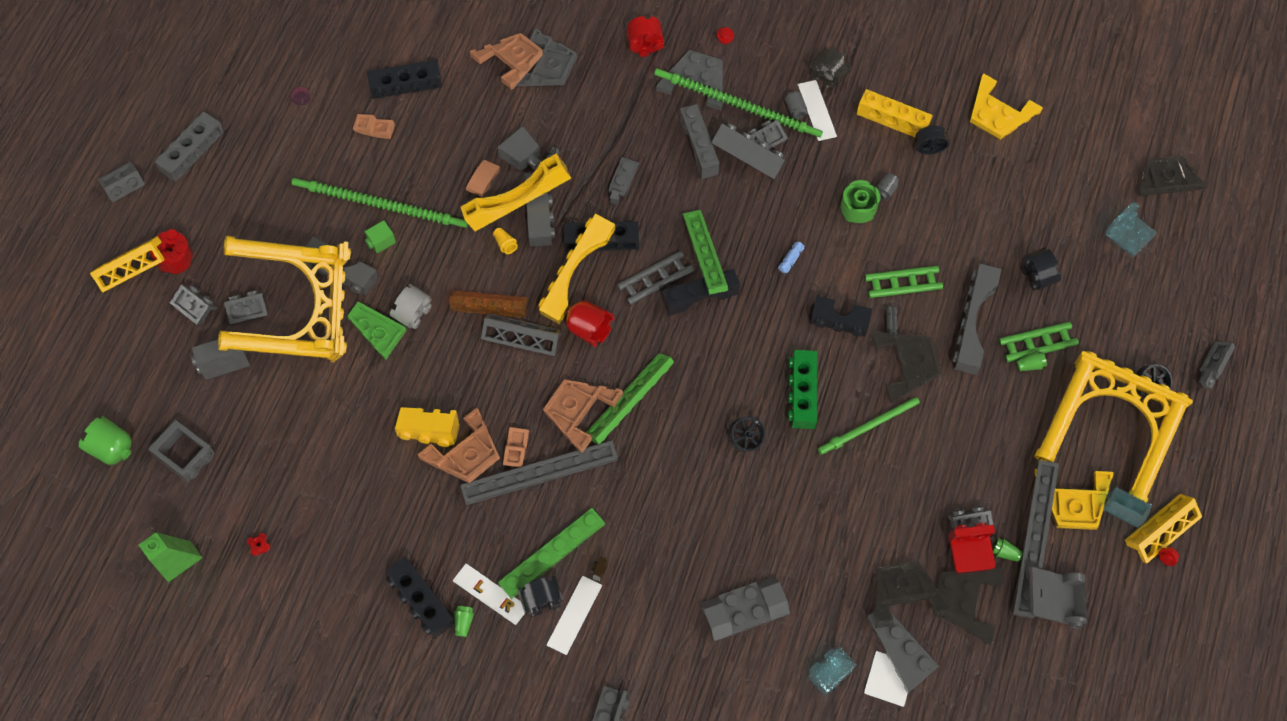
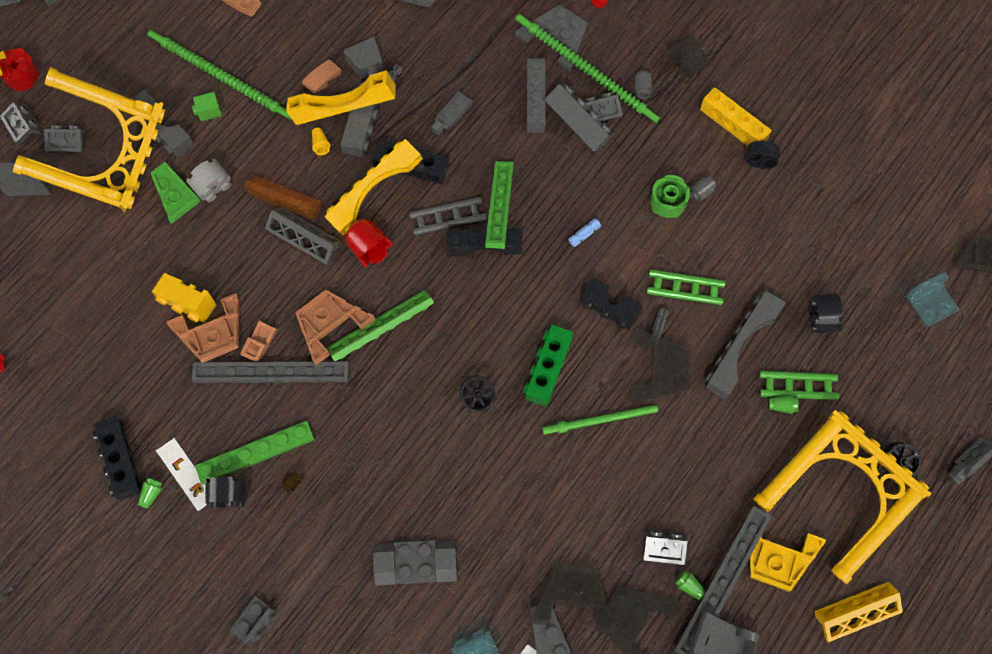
camera: 20 degrees right, 5 degrees up
(574, 615) = (254, 518): white sticker -> none
(817, 109) = (663, 94): white sticker -> none
(972, 547) = (655, 574): red bracket -> none
(995, 115) = (838, 148): yellow wing -> none
(1127, 507) = (827, 580): clear light blue brick -> none
(1169, 556) = (853, 642): red plate -> none

